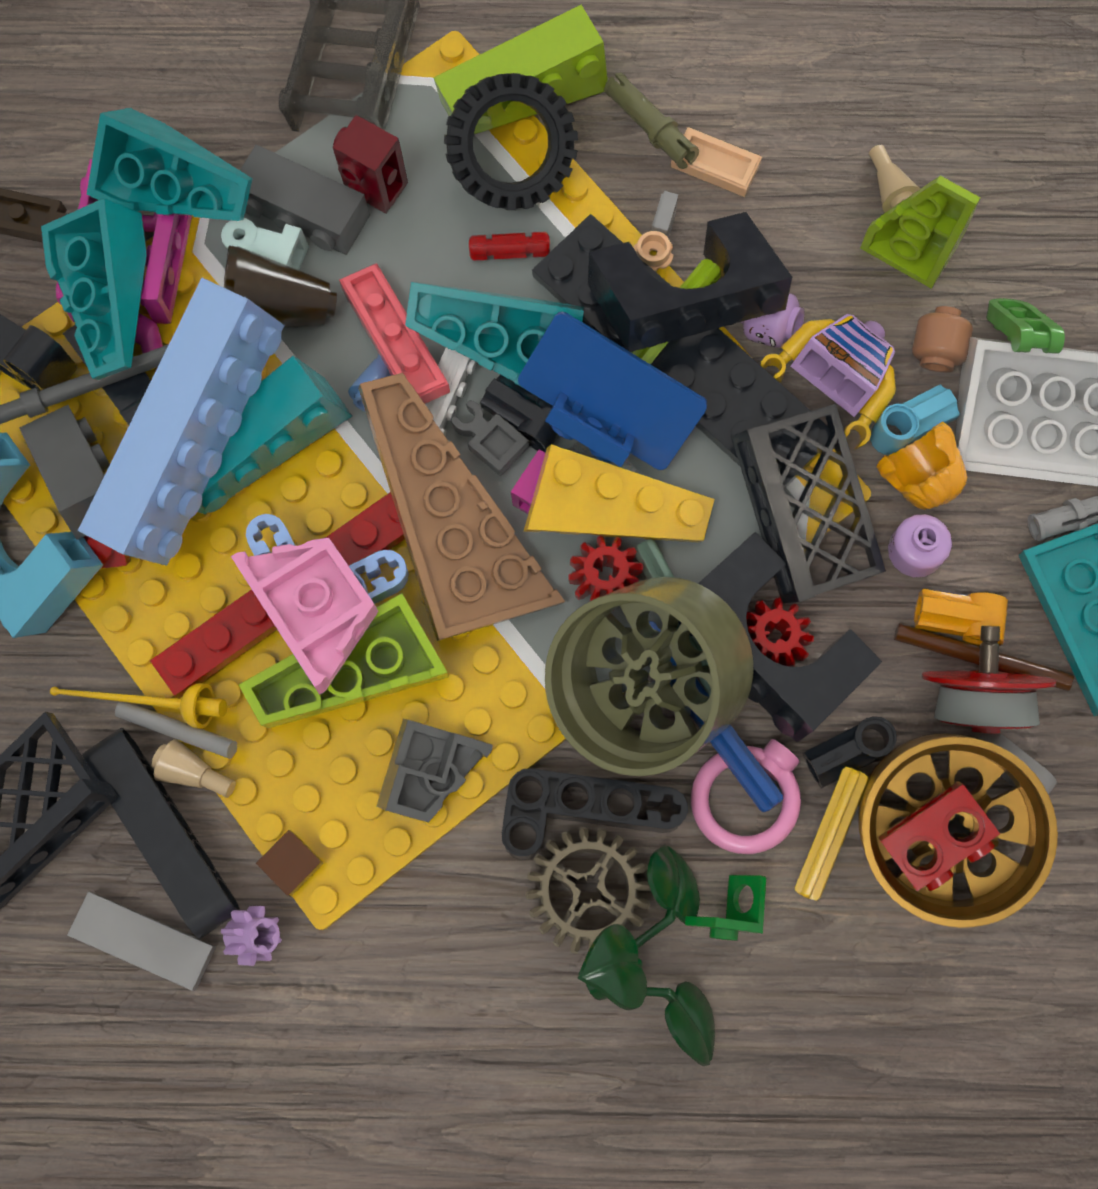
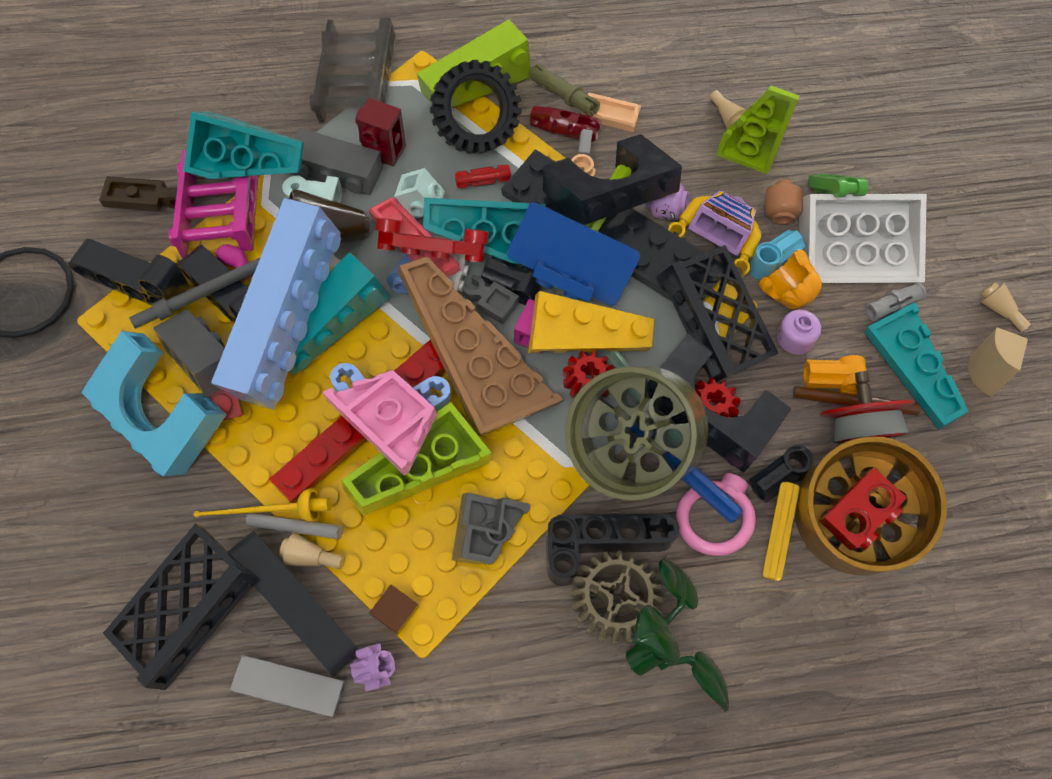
camera: 15 degrees left, 10 degrees down
(100, 270) = (201, 217): teal wedge -> none
(409, 260) = (413, 189): none -> light aqua brick
(422, 357) = (390, 237): none -> red plate
(643, 172) = (564, 122): none -> dark red hinge
(736, 919) = (722, 604): green bracket -> none

